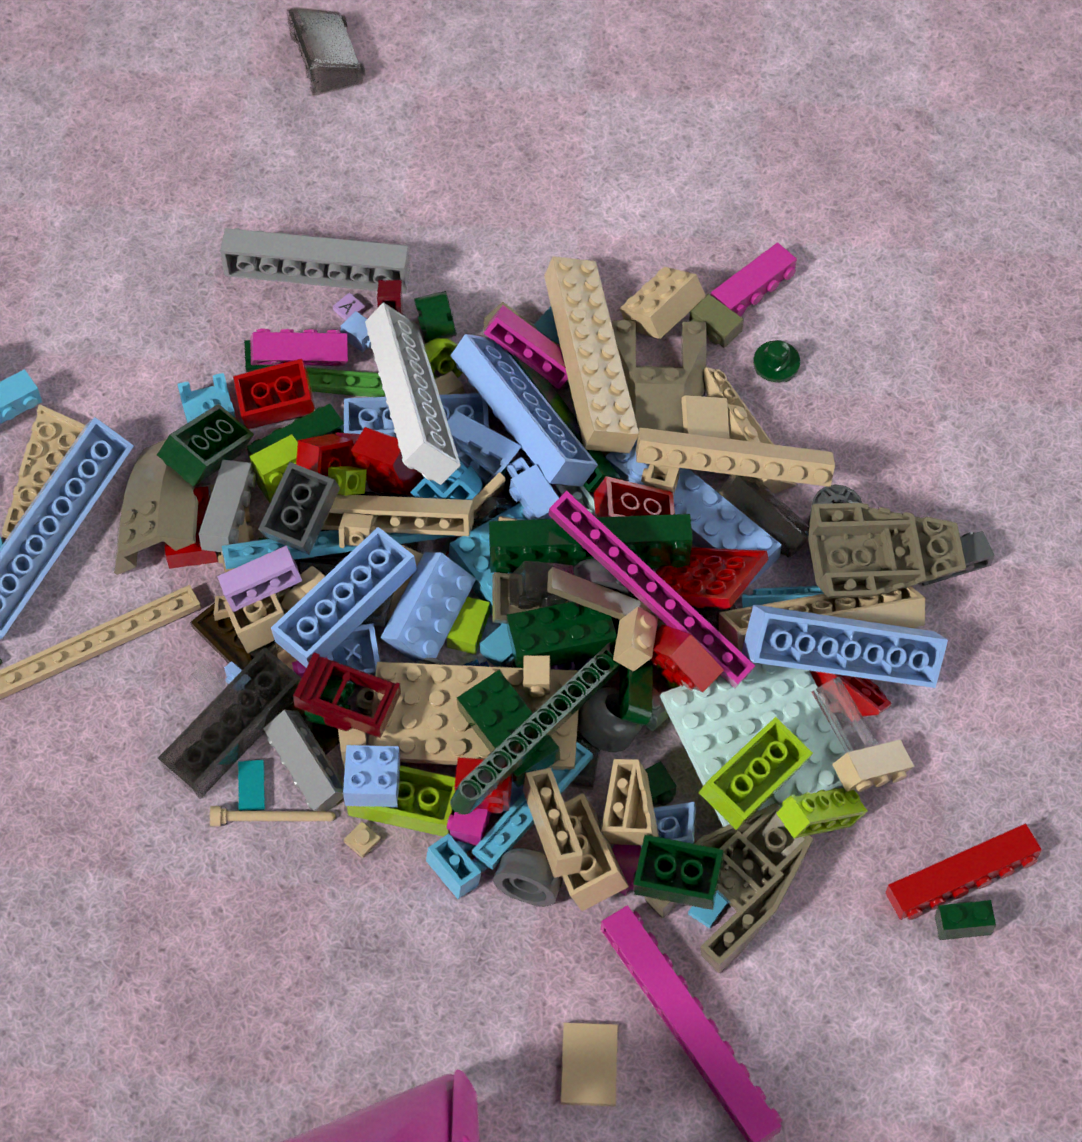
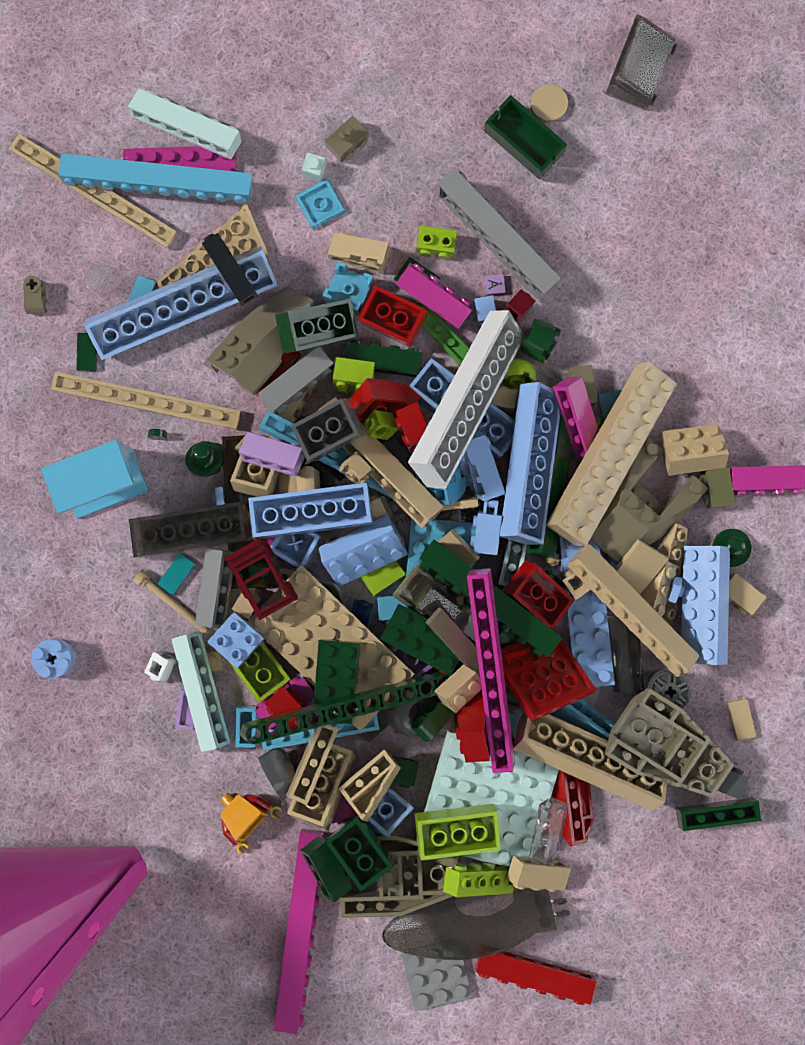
camera: 45 degrees right, 25 degrees up
(75, 450) = (229, 268): none -> black brick
(82, 329) = (314, 167): none -> light aqua brick
(91, 738) = (95, 479): none -> medium azure piece
(95, 286) = (347, 139): none -> dark tan brick
(114, 358) = (320, 203): none -> medium azure tile
(119, 669) = (157, 434): none -> dark green tile
(180, 949) = (59, 667): none -> light blue brick
(189, 653) = (204, 459): none -> dark green plate
(192, 364) = (359, 252): none -> tan wedge
(260, 309) = (436, 242): none -> lime brick
(266, 135) = (549, 103): none -> tan tile
(269, 171) = (525, 137): none -> dark green piece
(305, 876) = (154, 668): none -> white brick
(375, 871) = (200, 691): none -> light aqua brick
(377, 907) = (184, 717): none -> lavender tile
(528, 958) = (243, 817): none -> light orange torso
(536, 675) = (381, 661): tan brick -> none
(589, 1064) = (227, 902): tan tile -> none
(660, 930) = (326, 869): none -> dark green brick
(759, 422) = (676, 589): none -> light blue plate
(796, 412) = (706, 602): none -> light blue brick
(823, 390) = (744, 595): none -> tan brick
(844, 646) = (583, 795): light blue brick -> none
(858, 865) = (473, 925): none -> clear smoke windscreen
(868, 956) = (436, 981): none -> light grey plate
(929, 495) = (741, 719): none -> tan tile
(965, 920) = (508, 1004): dark green brick -> none
(987, 585) = (718, 814): none -> dark green brick

